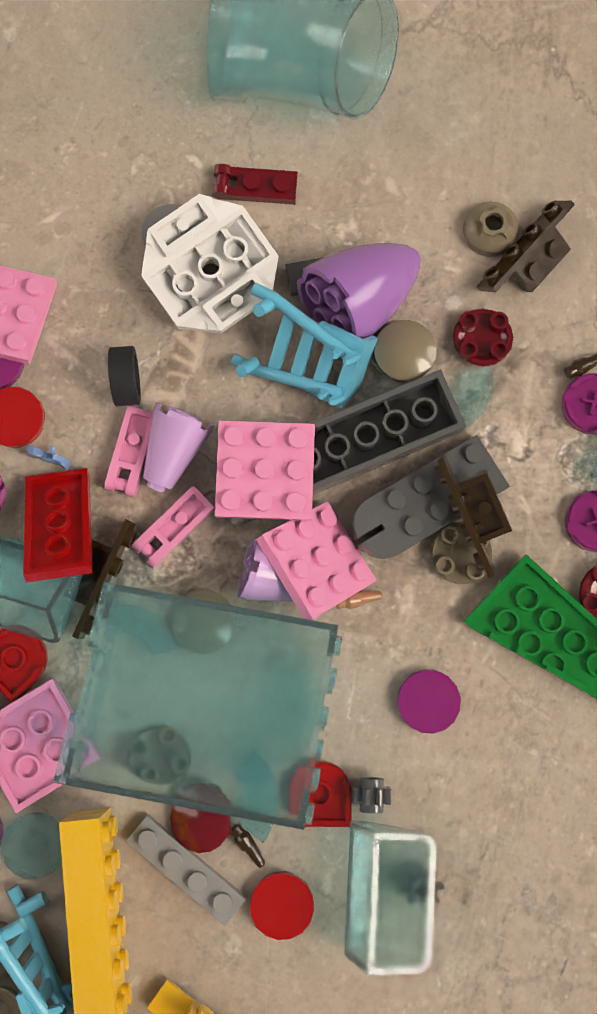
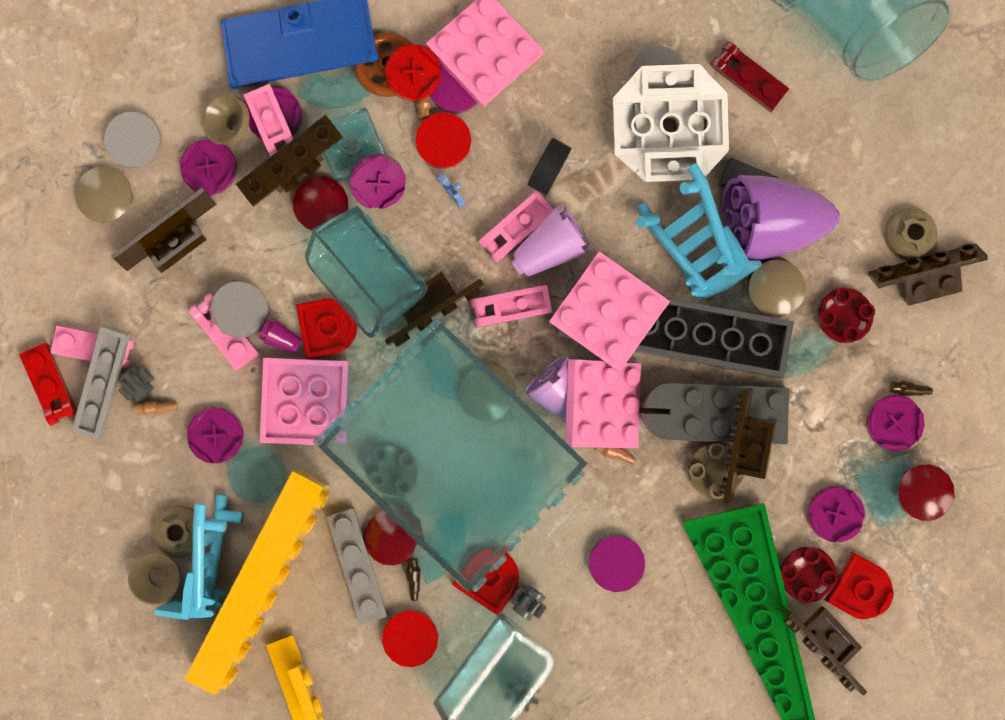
camera: 35 degrees right, 5 degrees up
(57, 525) = (427, 249): red plate -> none

